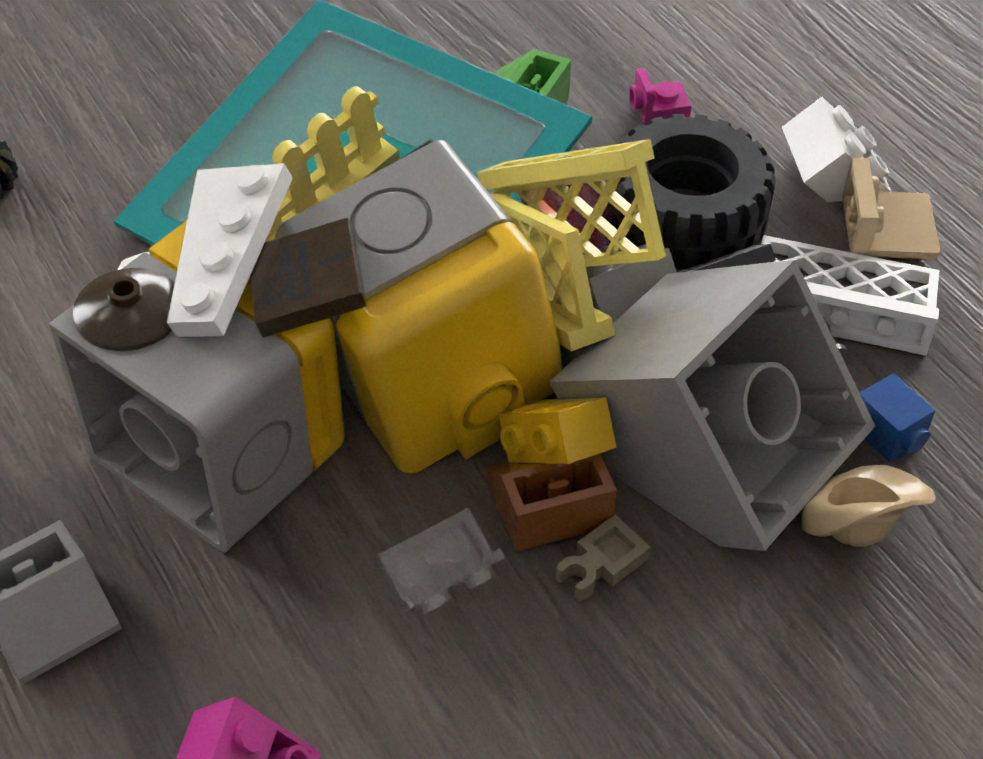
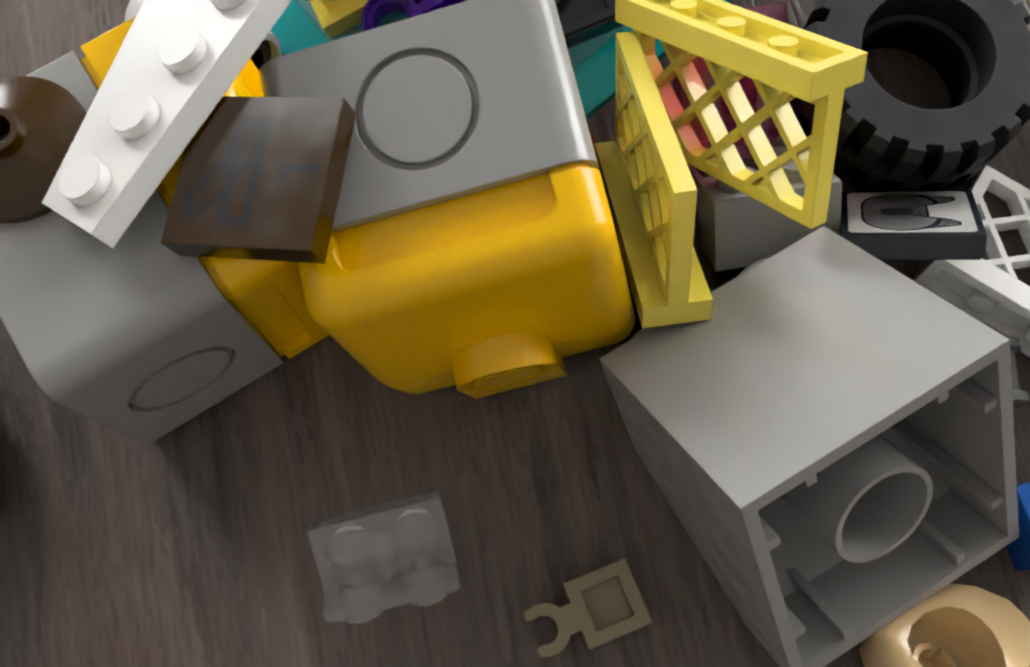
camera: 20 degrees right, 25 degrees up
(551, 500) = (556, 493): dark orange slope -> none
(557, 430) = (584, 438): yellow brick -> none

